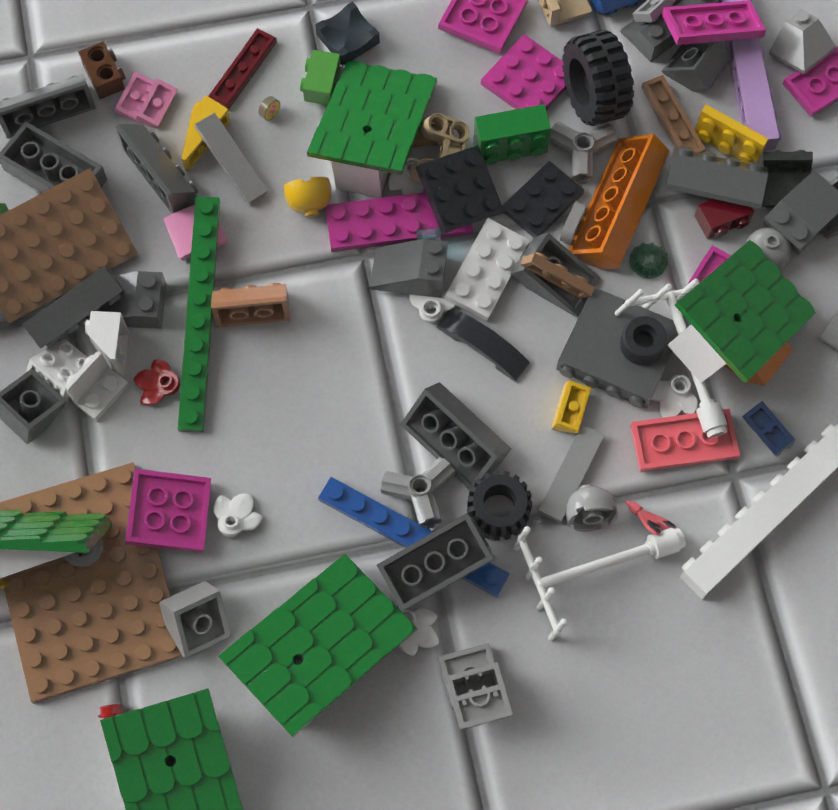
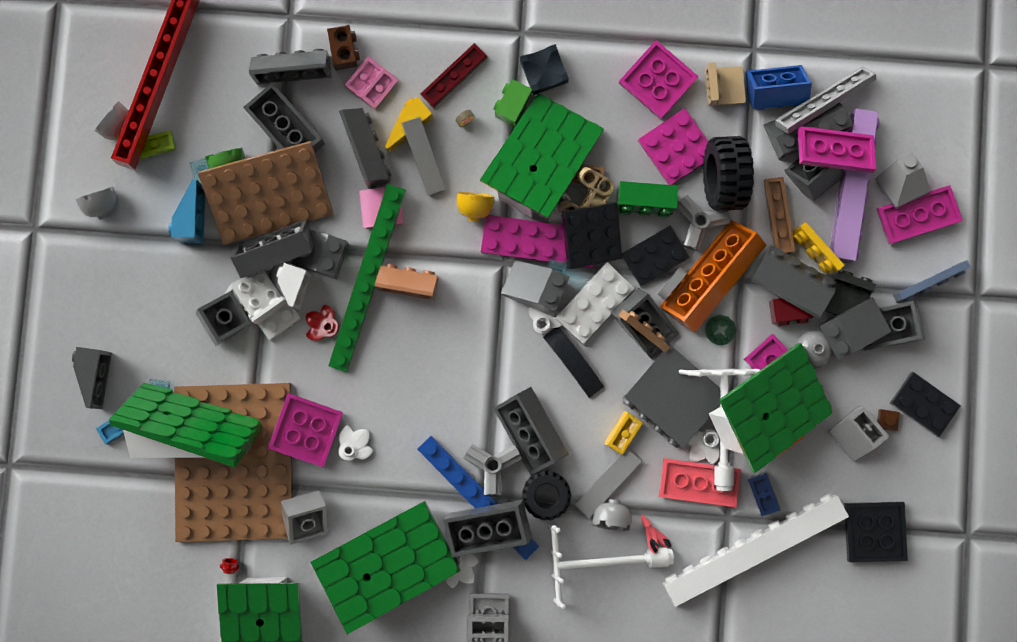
camera: 15 degrees right, 15 degrees up
(647, 326) = (701, 393): black tyre -> none

